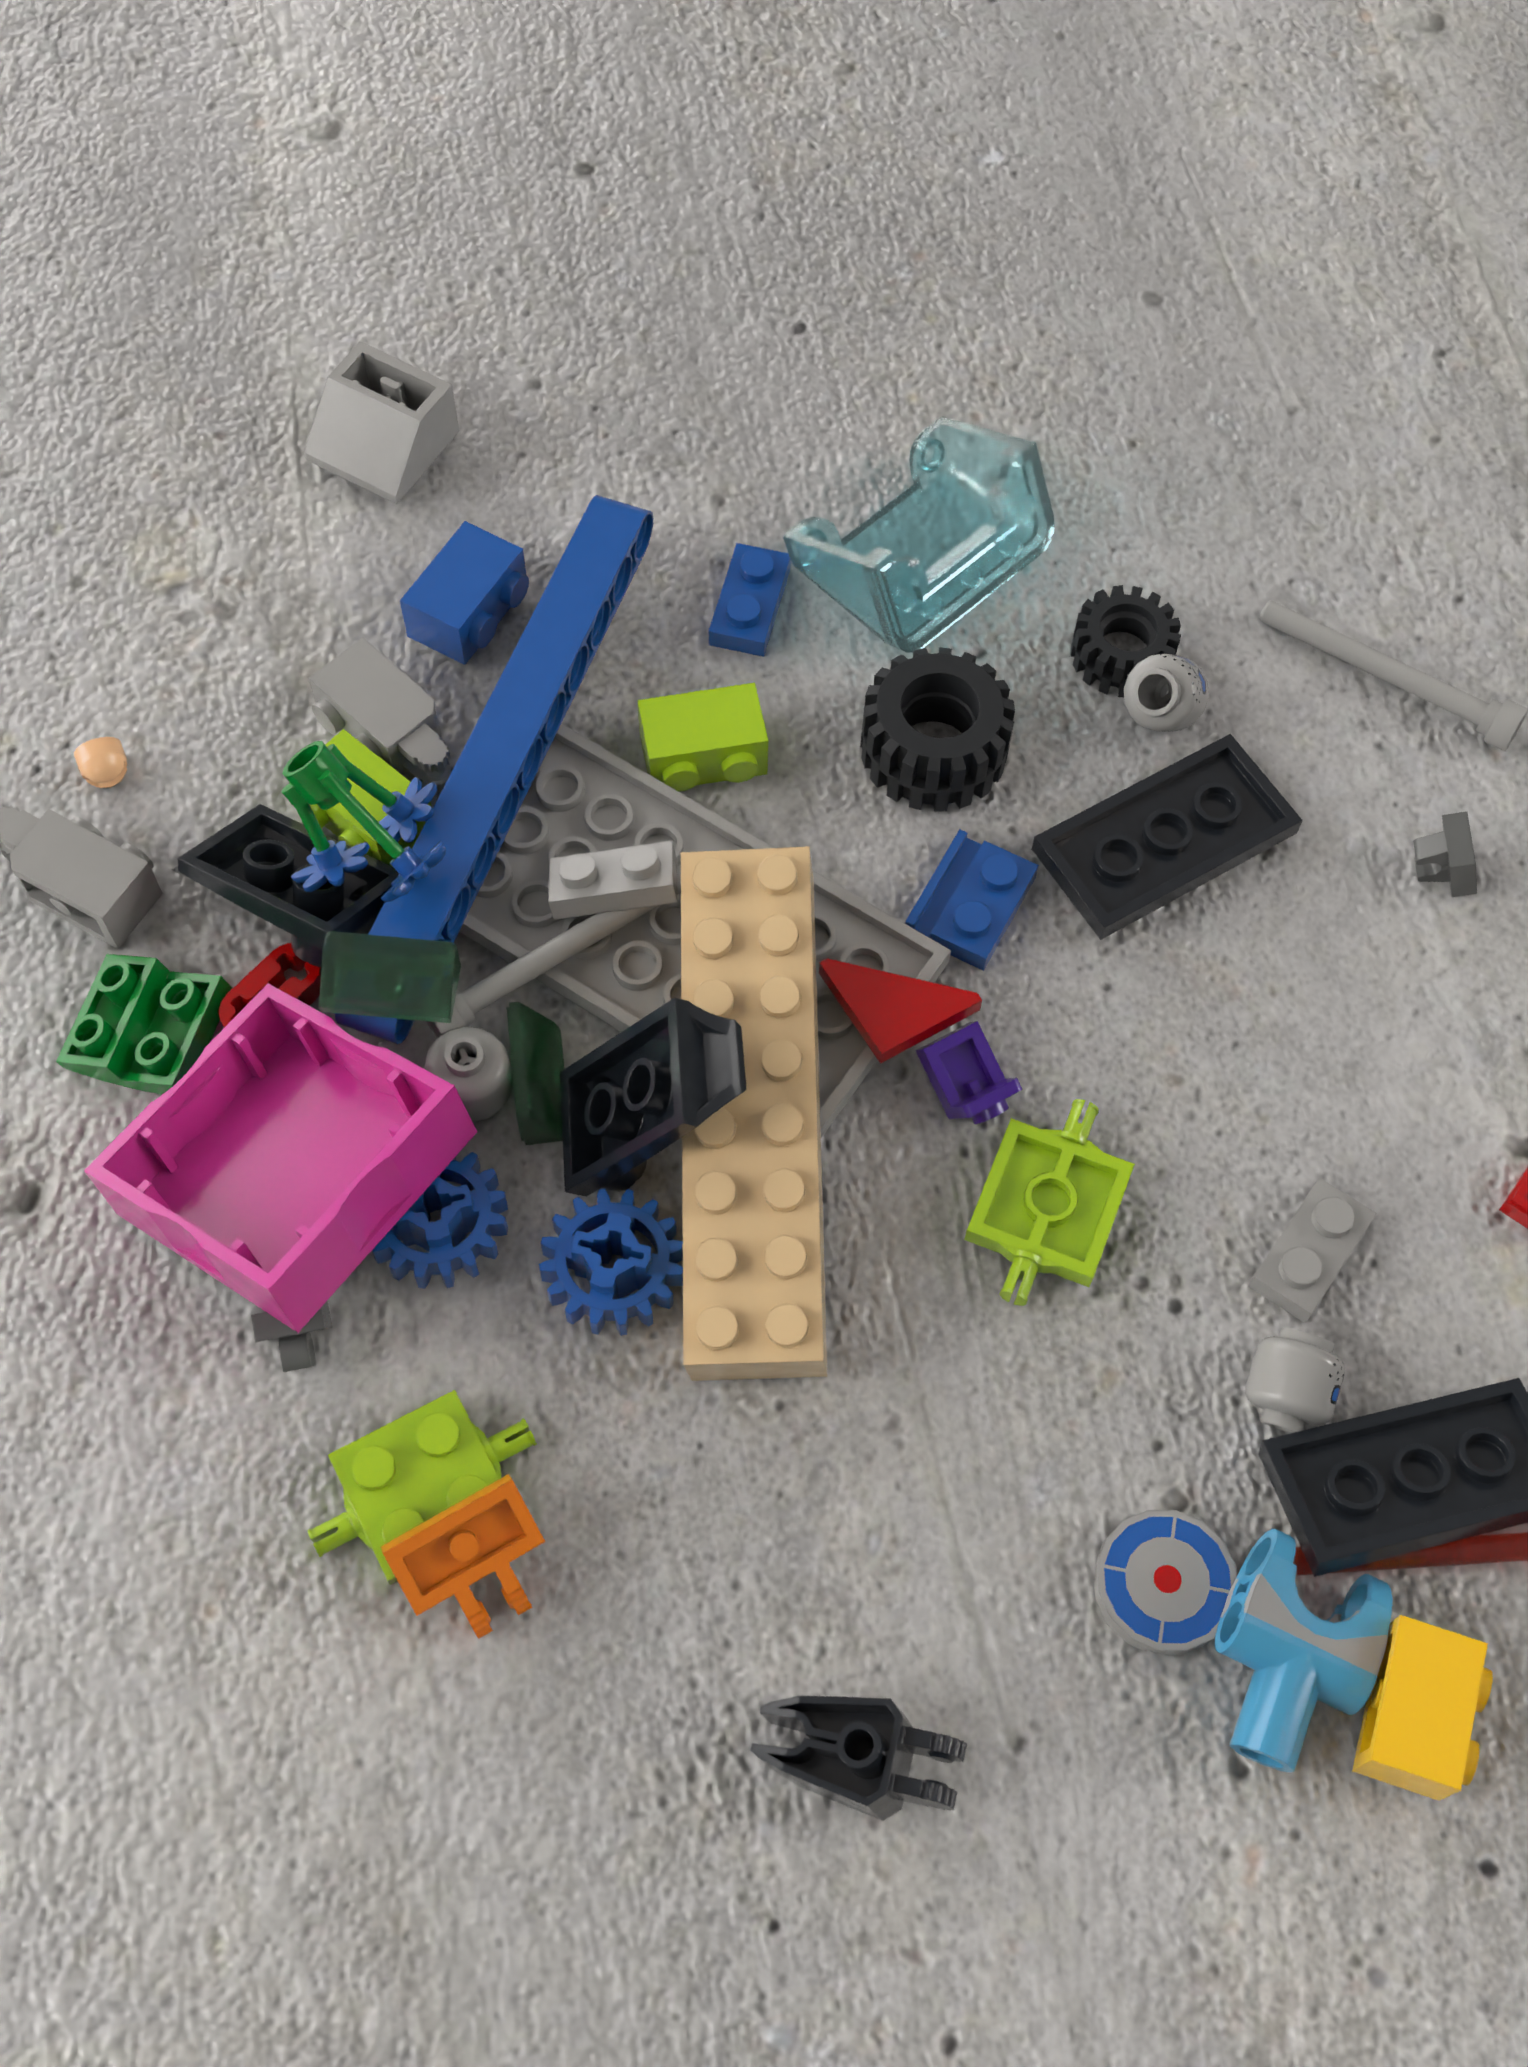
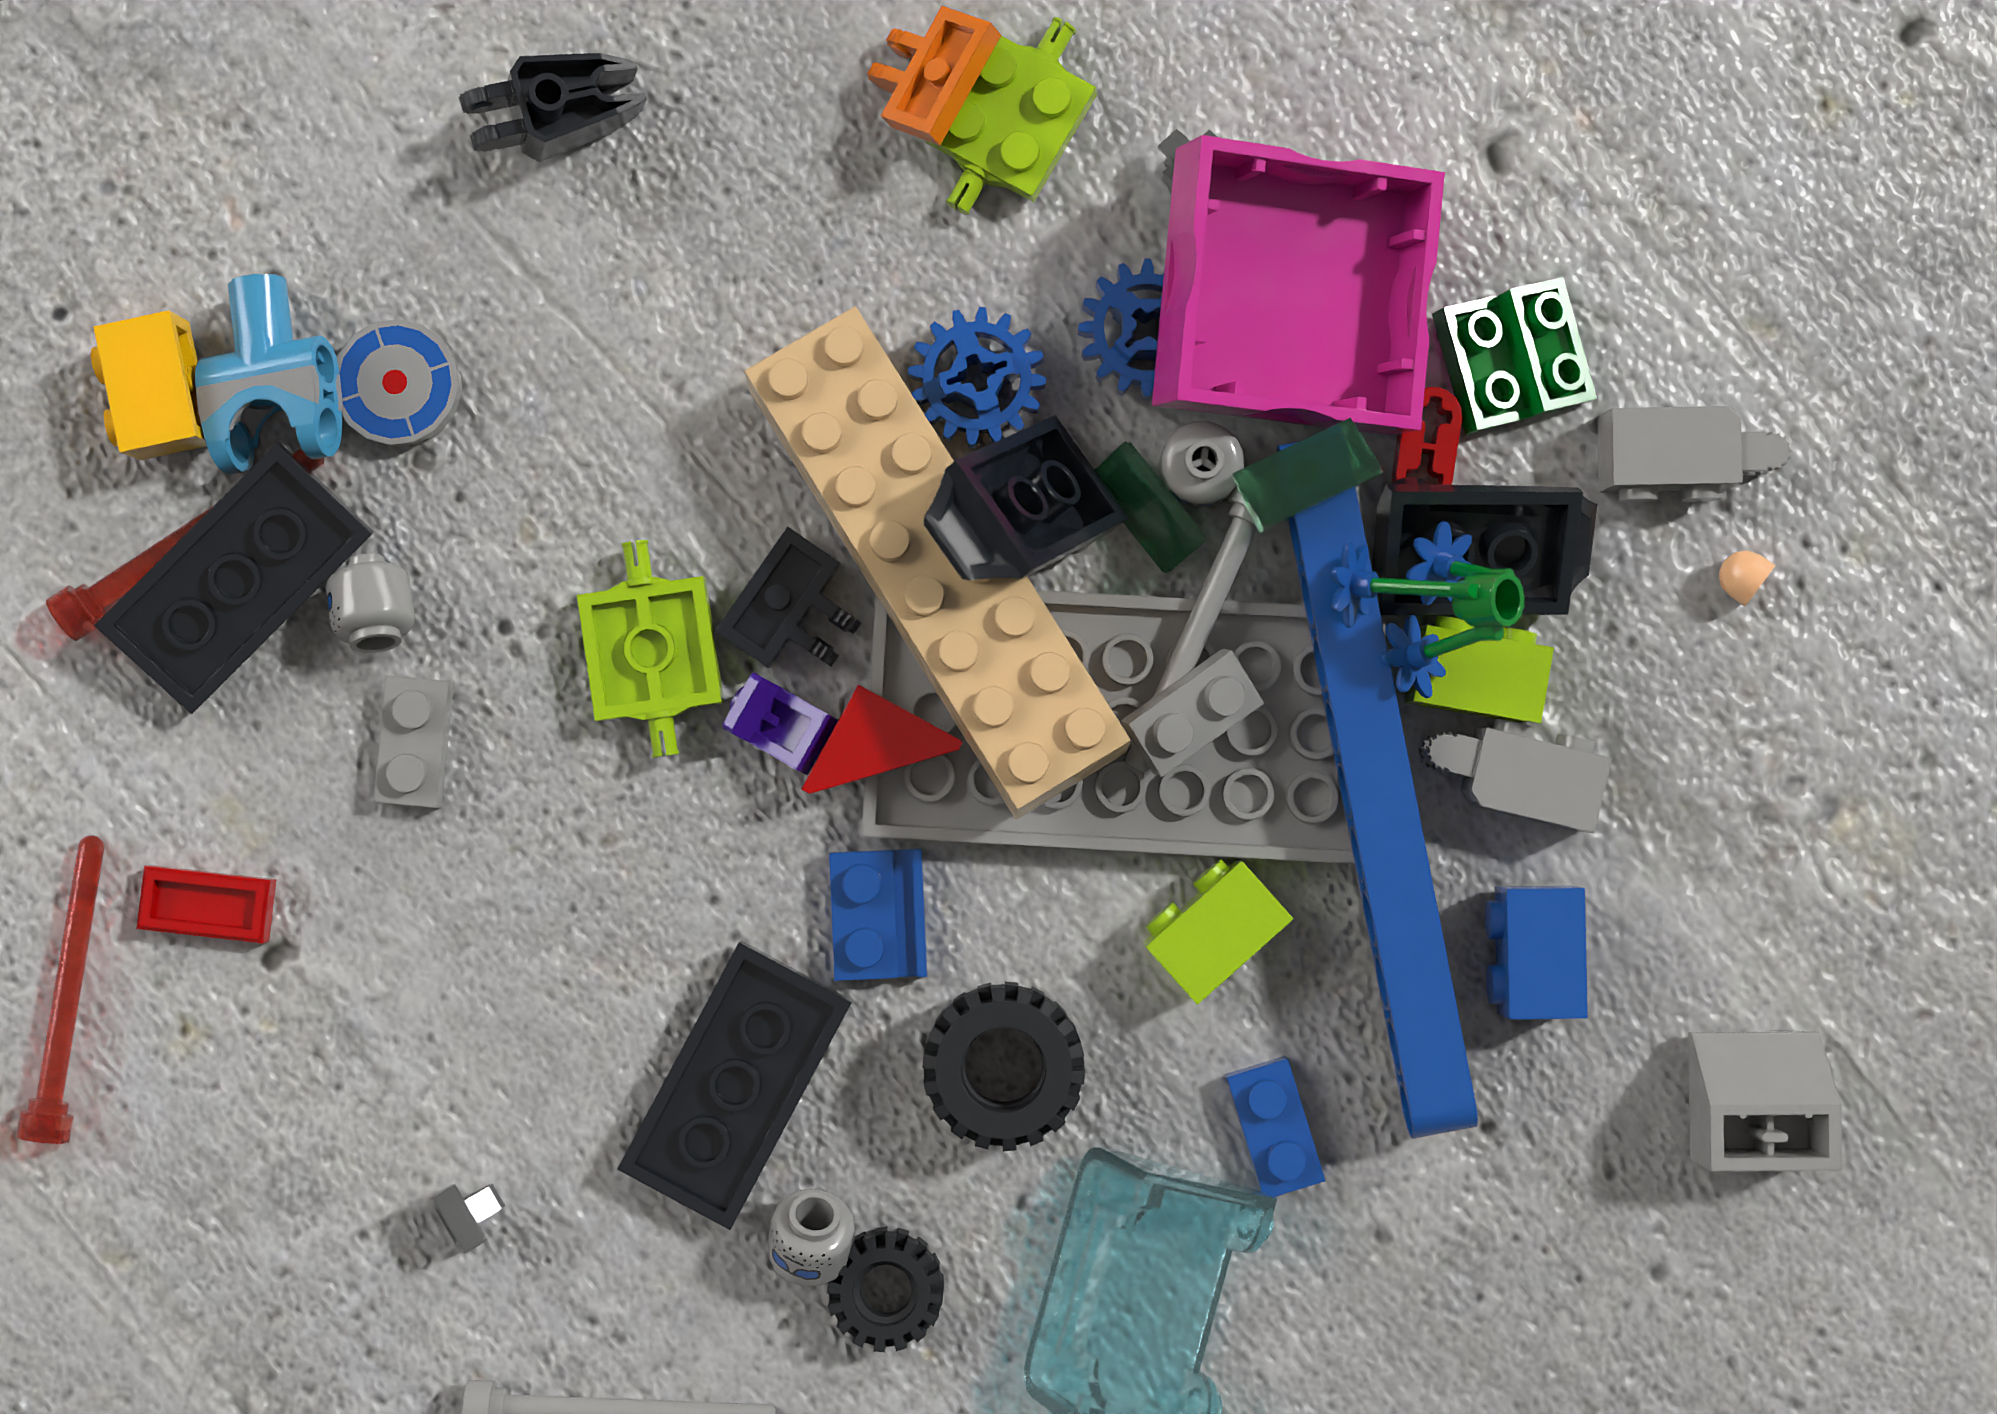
camera: 150 degrees right, 25 degrees up
(905, 1179) = (779, 600): none -> black hinge

